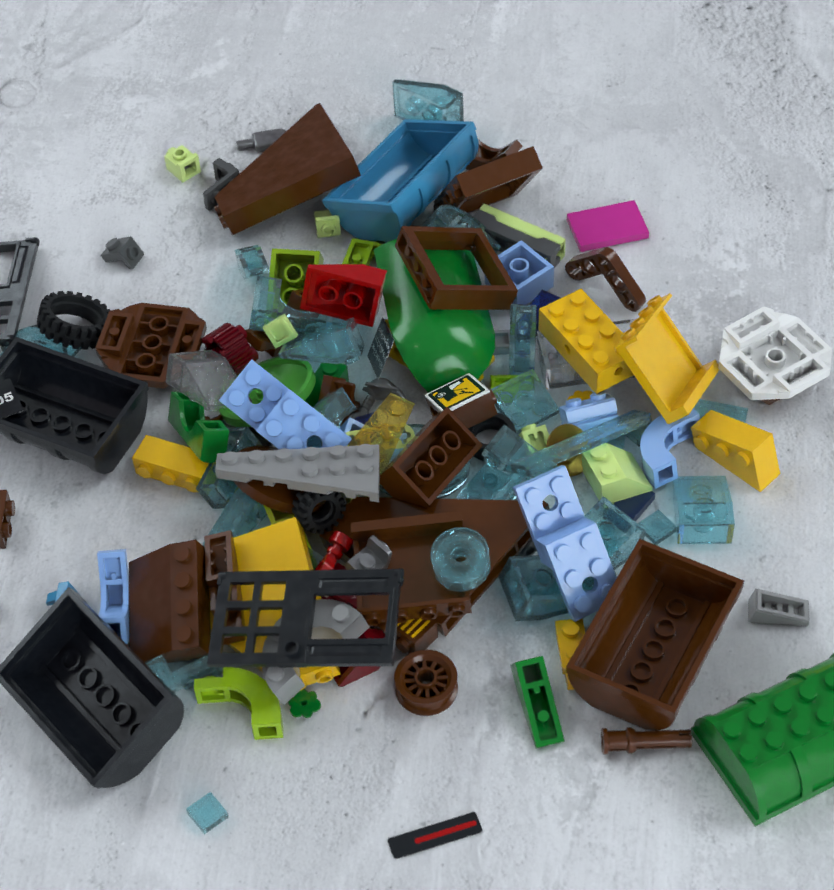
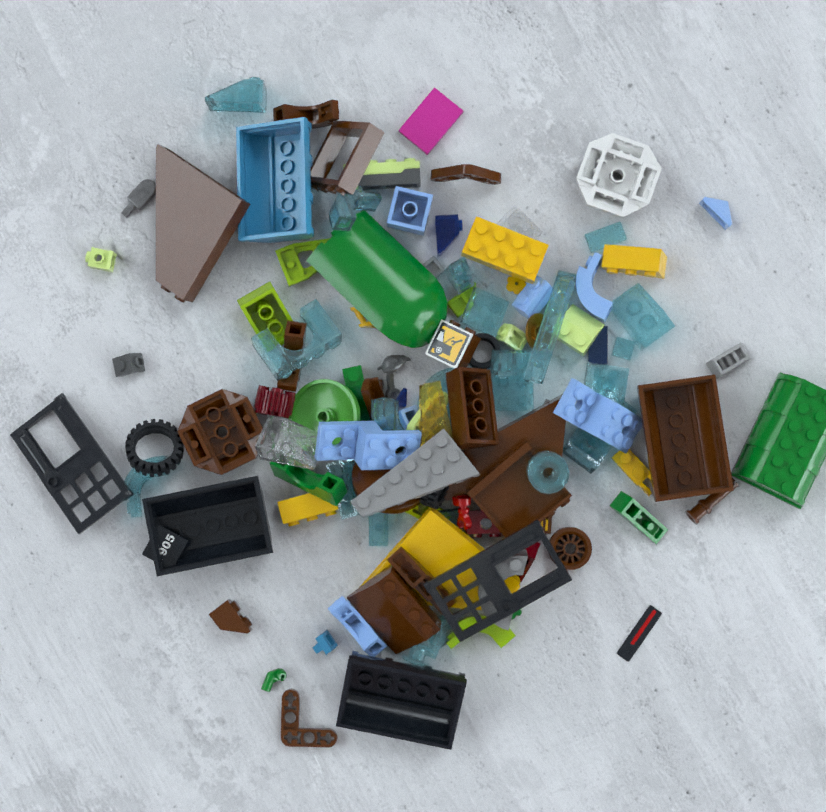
camera: 40 degrees left, 35 degrees up
(207, 813) = (511, 708): clear light blue tile -> none
(224, 174) = (142, 248): dark grey bracket -> none
(251, 262) = (232, 323): clear light blue slope -> none
(280, 331) = (302, 371): yellowish green tile -> none
(327, 224) = (245, 249): yellowish green bracket -> none
(329, 345) = (339, 364): clear light blue slope -> none
(344, 291) = (331, 316): red slope -> none
(374, 556) = (493, 507): flat silver bracket -> none
(380, 348) = (372, 337): black sticker -> none
(411, 246) = (367, 273): reddish brown window -> none
(664, 361) = (564, 235): yellow panel -> none

